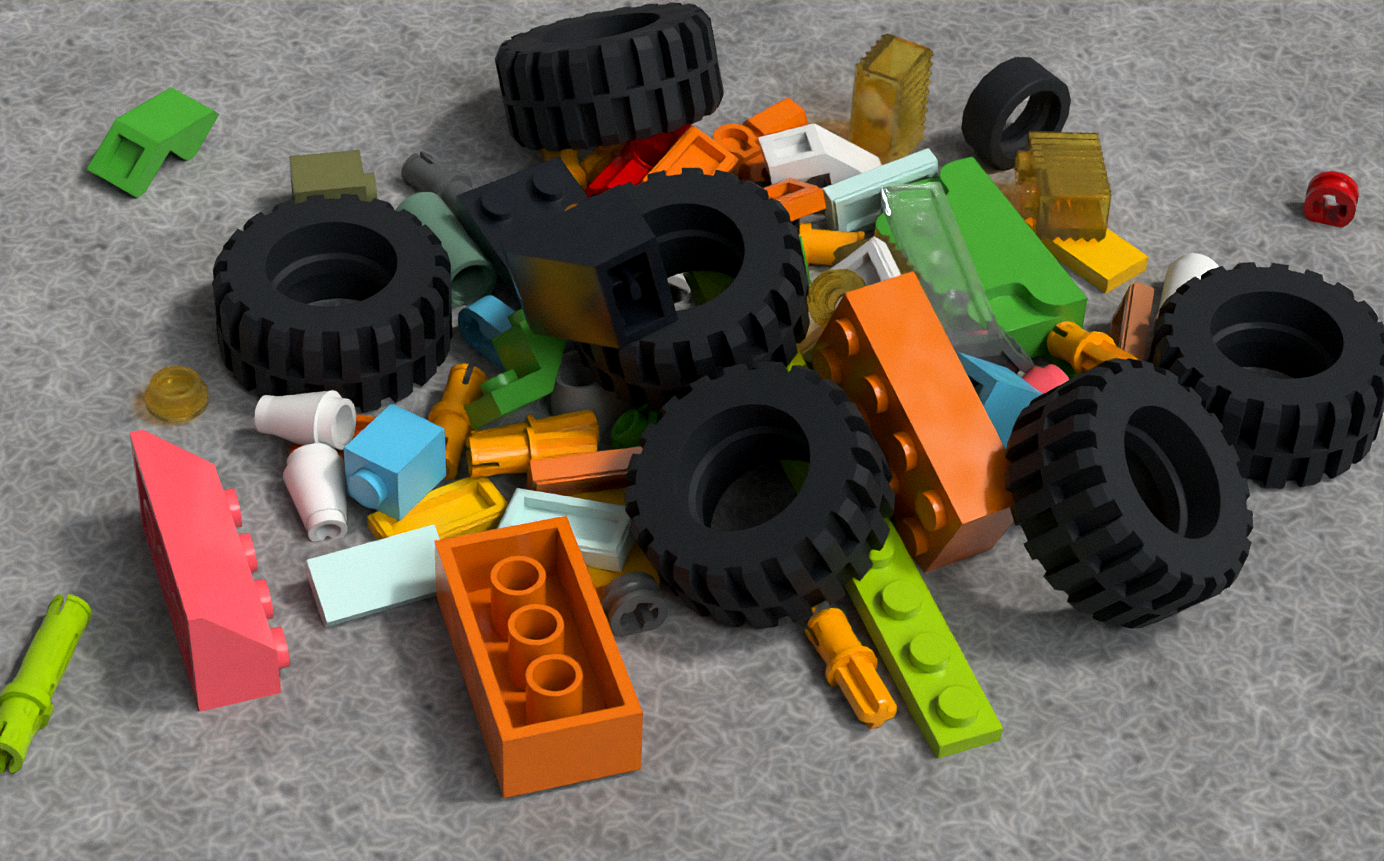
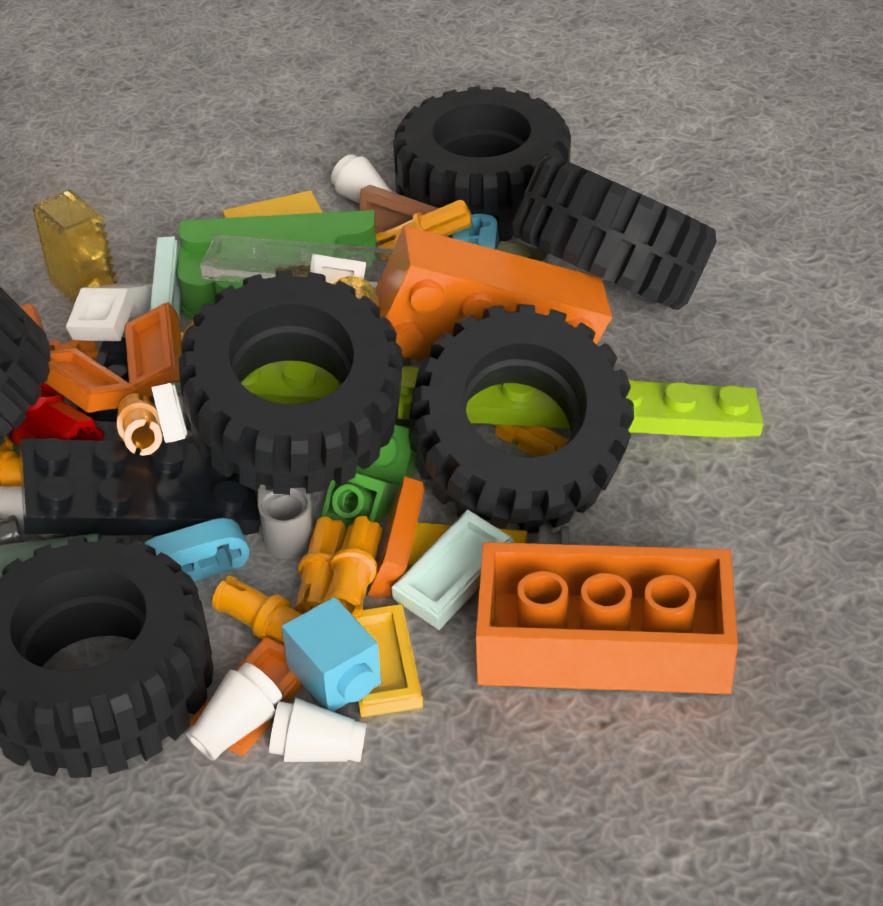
camera: 65 degrees left, 0 degrees up
(176, 395) = (109, 807): clear yellow plate -> none
(207, 576) = (404, 844): coral slope -> none
(374, 576) = (446, 715): light aqua tile -> none
(530, 372) = (266, 527): bright green slope -> none
(592, 273) = (320, 382): black slope -> none
(851, 667) = (672, 449): light orange axle -> none
(998, 97) = (133, 194): black tyre -> none
(1064, 185) = (228, 190): clear yellow brick -> none
(1337, 185) = (307, 97): red bush -> none

